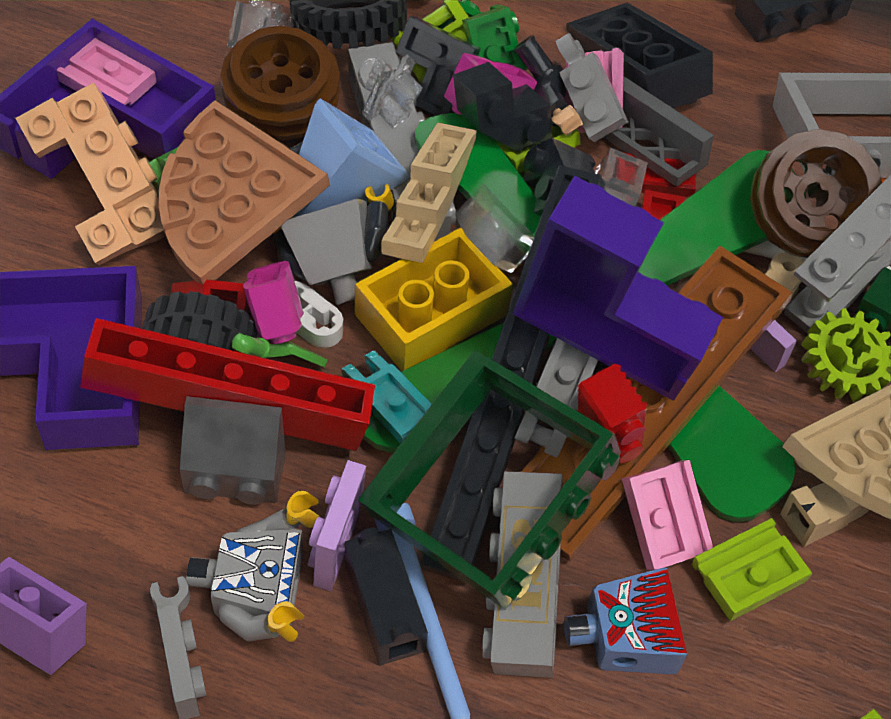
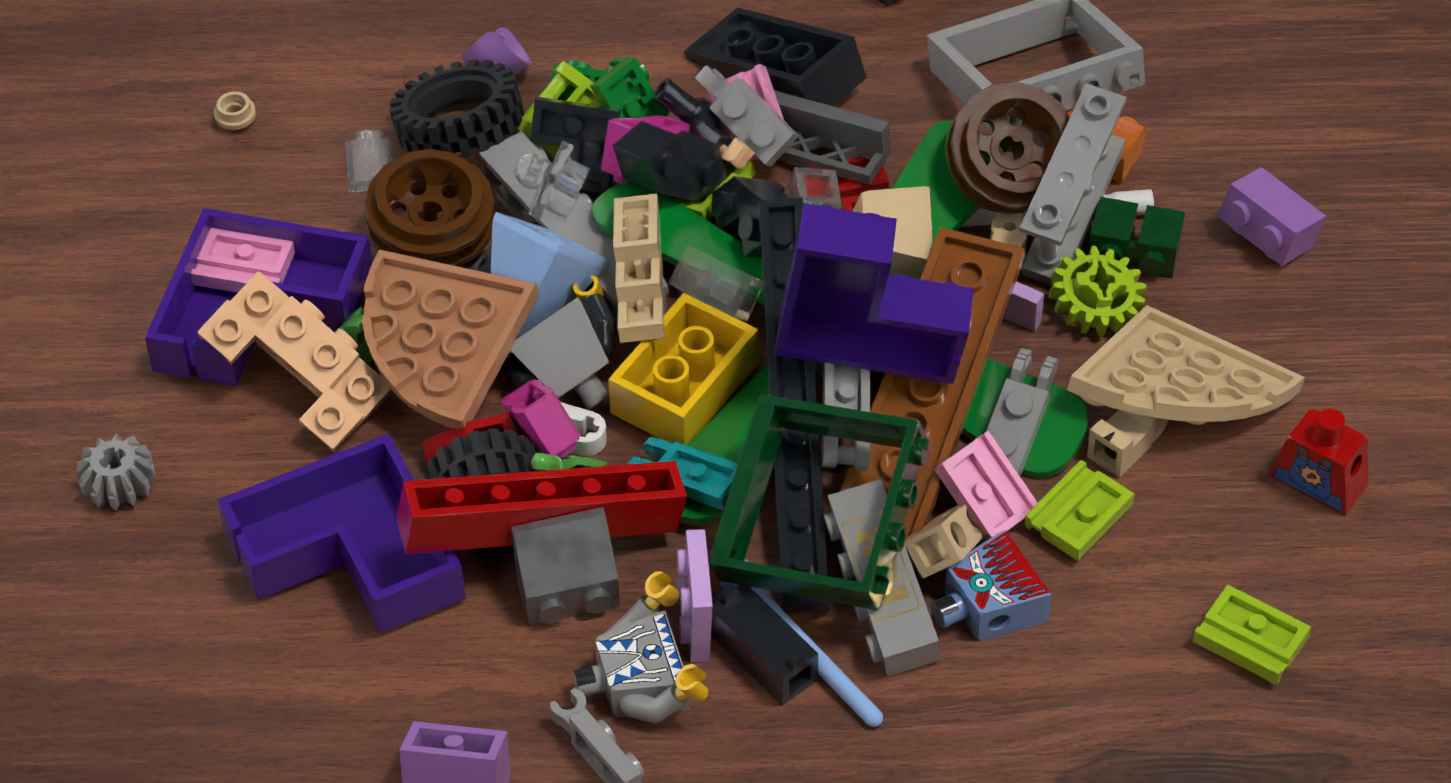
camera: 15 degrees left, 5 degrees down
(602, 556) = (943, 541): none -> tan leg
(615, 406) = (906, 396): red brick -> none
(685, 235) = (913, 225): none -> tan torso
(730, 448) = (1021, 409): none -> light grey hinge

